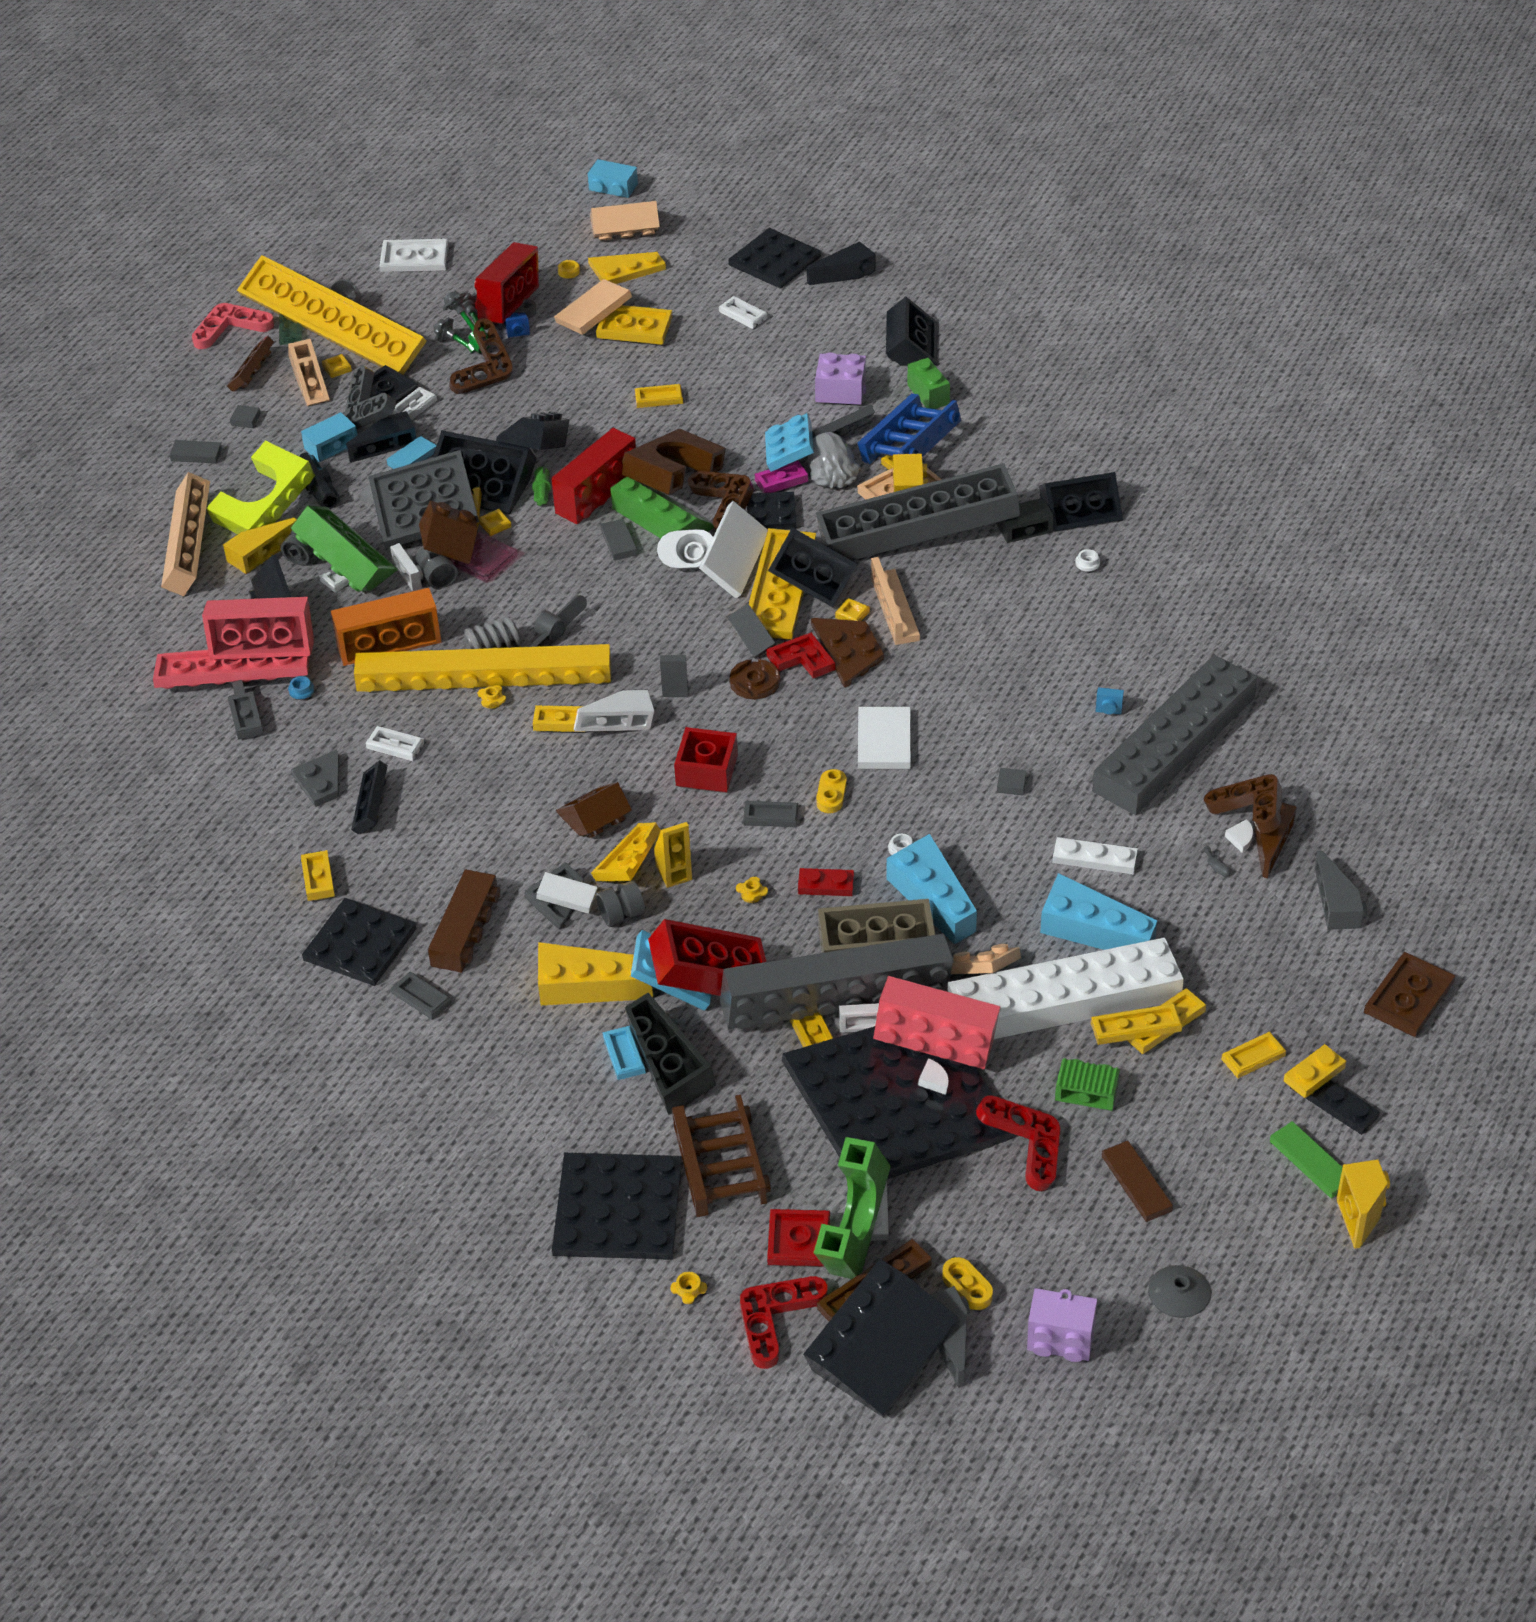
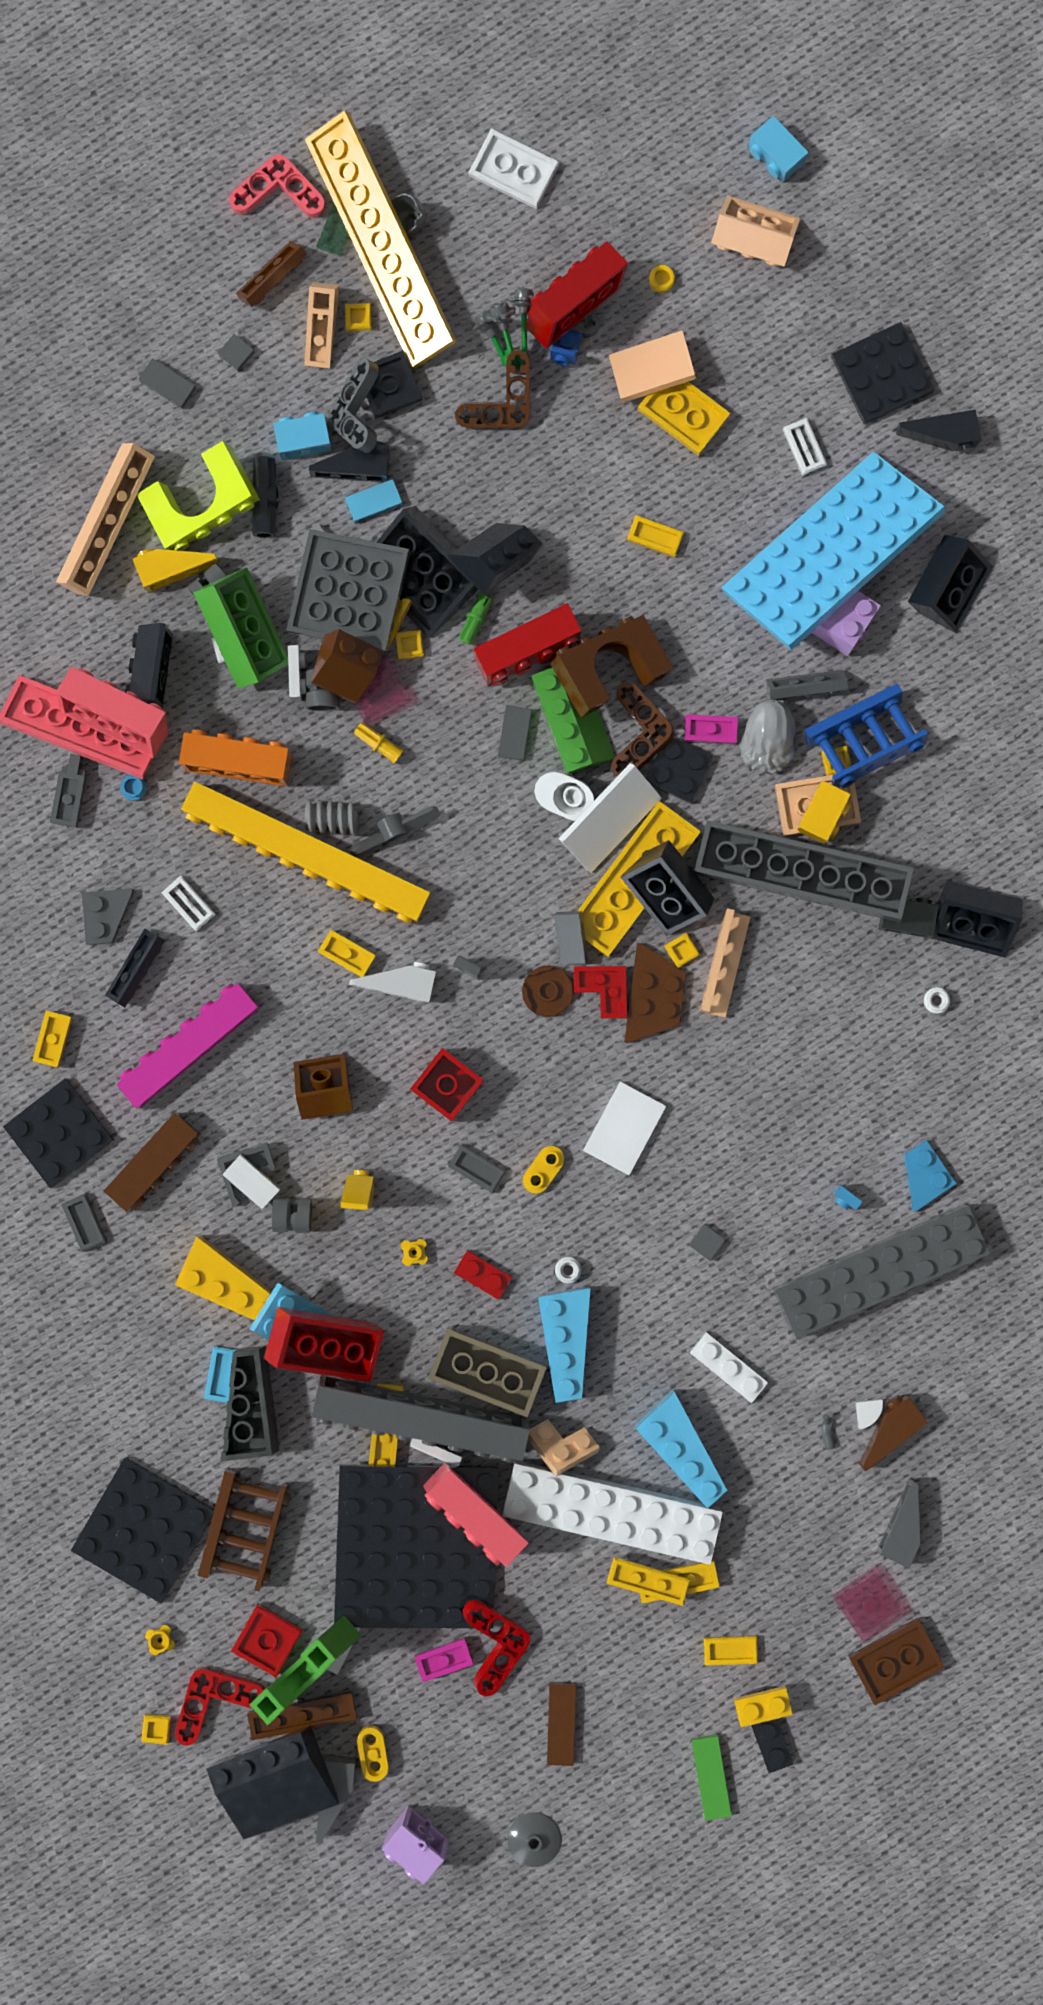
camera: 25 degrees right, 40 degrees up
(415, 407) = (412, 430): white tile -> none
(449, 830) = (187, 1046): none -> dark pink brick
(491, 696) = (304, 896): yellow plate -> none
(505, 583) = (378, 742): none -> yellow axle
(627, 266) = (721, 307): yellow wing -> none
(628, 855) = (325, 1161): yellow wing -> none
(730, 1367) = (156, 1729): none -> yellow tile
(789, 442) = (739, 692): medium azure plate -> none
(805, 344) = (833, 550): none -> medium azure plate
(928, 383) = (925, 670): bright green brick -> none
(934, 1077) = (449, 1554): white tile -> none
(985, 1176) = (443, 1659): none -> dark pink plate
(1087, 1084) = (575, 1614): bright green brick -> none
(1165, 666) = (925, 1175): none -> dark azure wing
(1257, 792) = (902, 1400): reddish brown beam -> none
(1351, 966) = (868, 1603): none -> clear pink plate
(1362, 1198) = (718, 1855): yellow slope -> none

